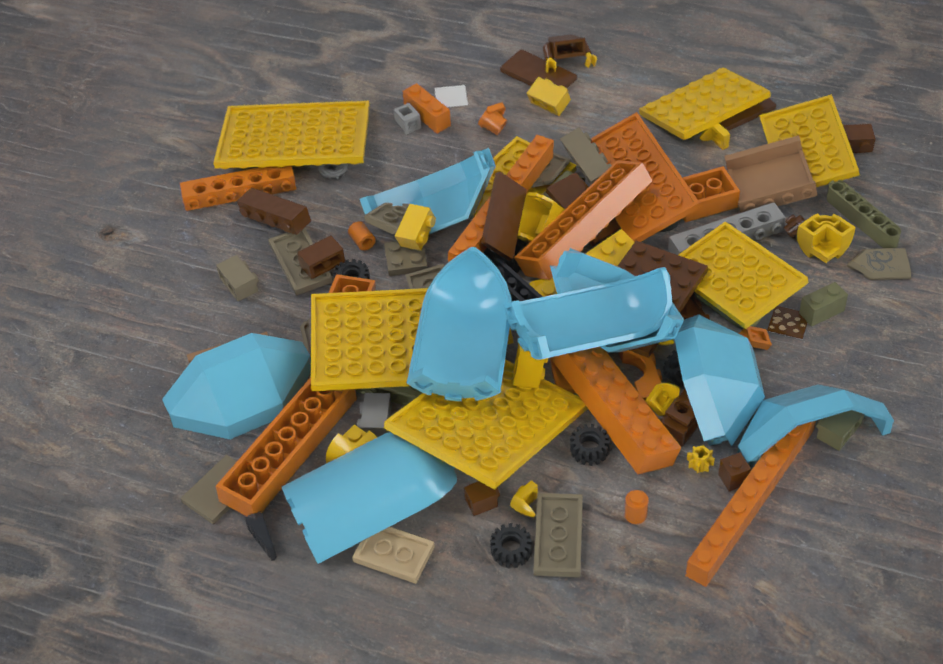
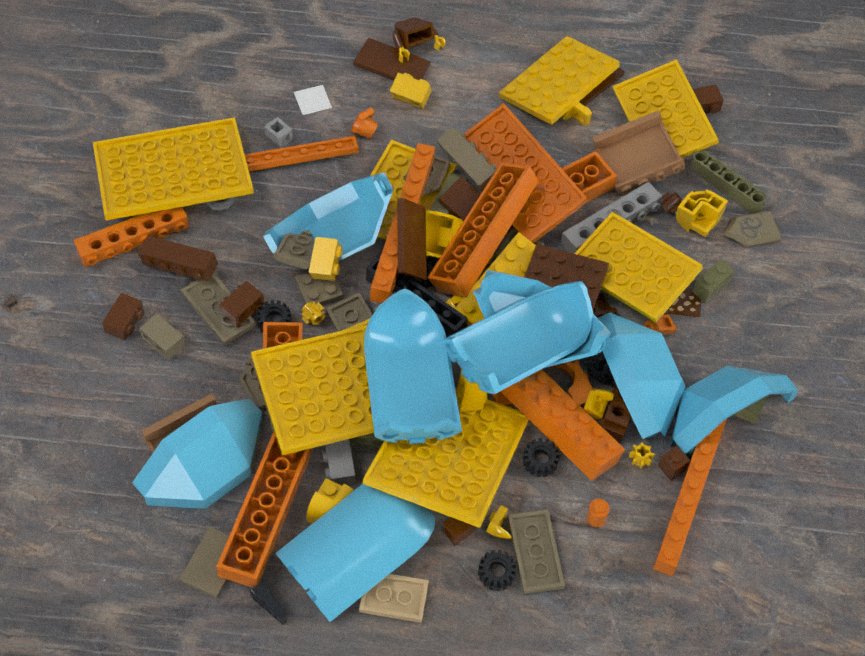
camera: 20 degrees left, 10 degrees up
(205, 255) = (123, 316): none -> reddish brown brick
(361, 235) = (270, 271): orange brick -> none
(391, 277) = (313, 313): none -> yellow gear
(424, 138) = (301, 153): none -> orange plate
(431, 110) = (302, 122): orange brick -> none

